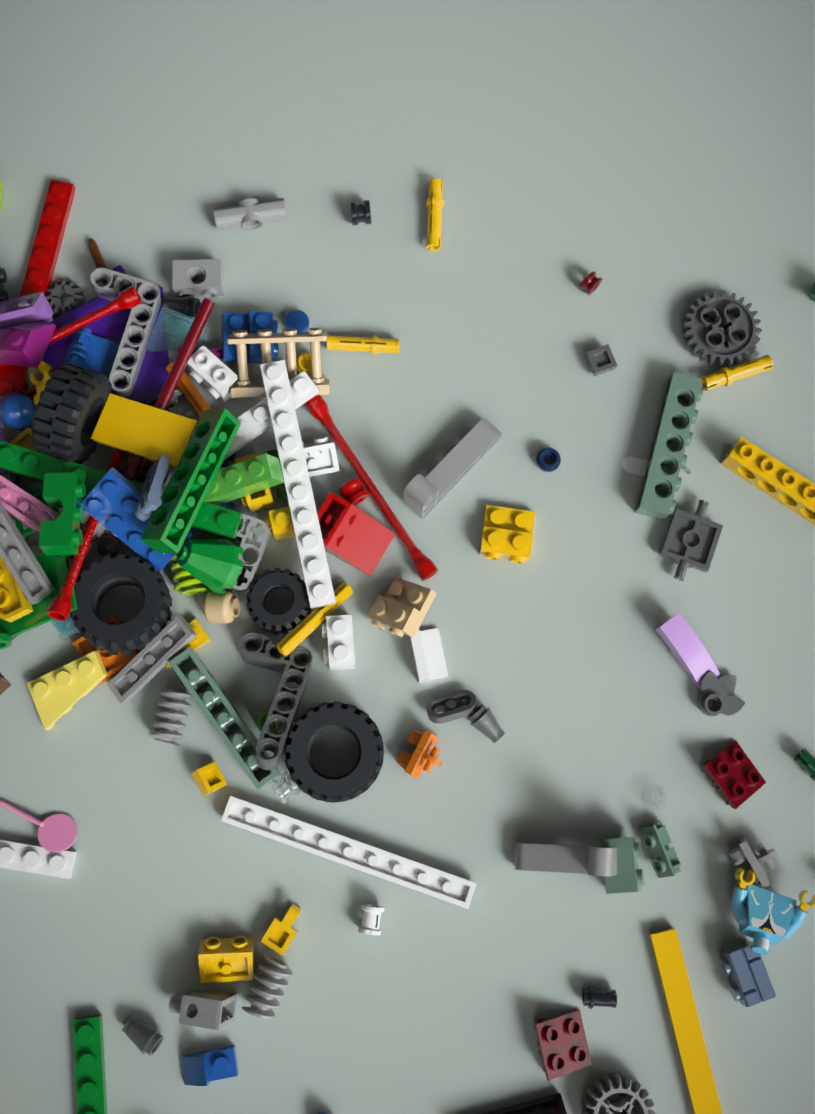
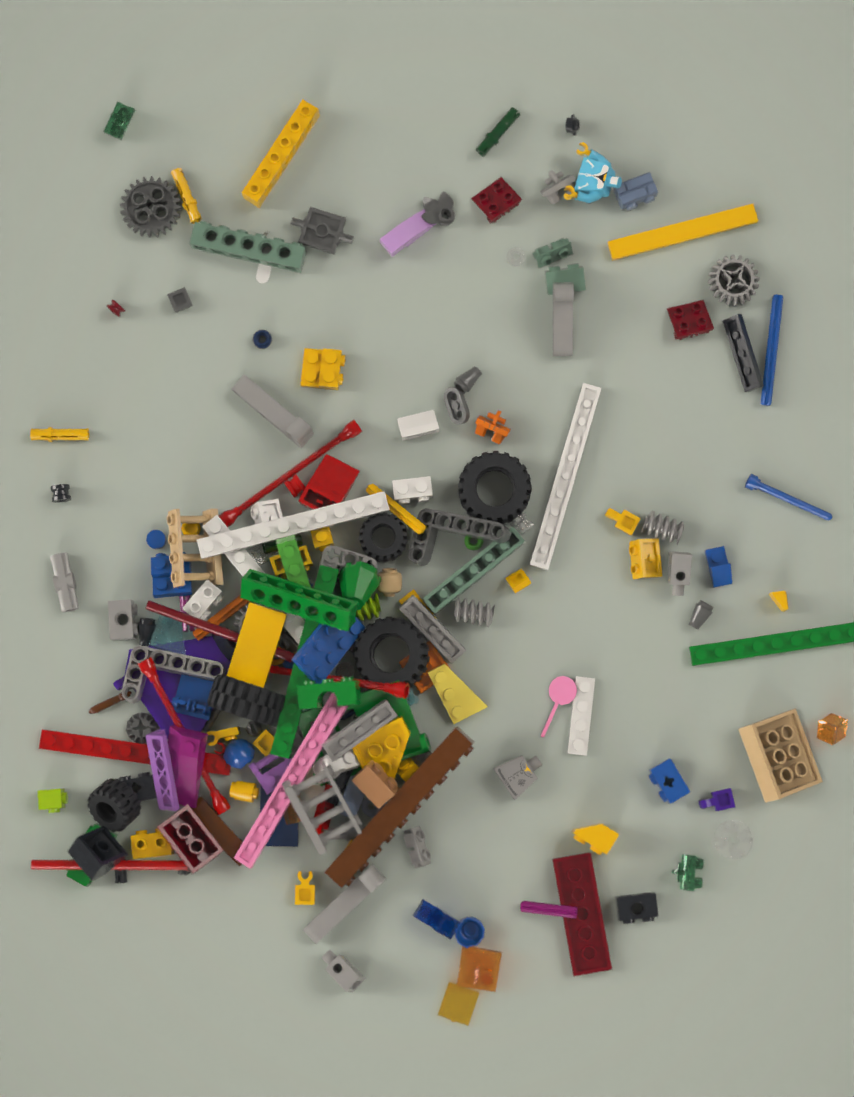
camera: 80 degrees left, 5 degrees up
(152, 488) = (306, 628): sand blue plate -> none
(363, 344) = (173, 462): yellow pin -> none
(371, 919) = (612, 457): white bush -> none
(401, 608) = (384, 444): tan plate -> none
(599, 998) = (657, 294): black pin -> none

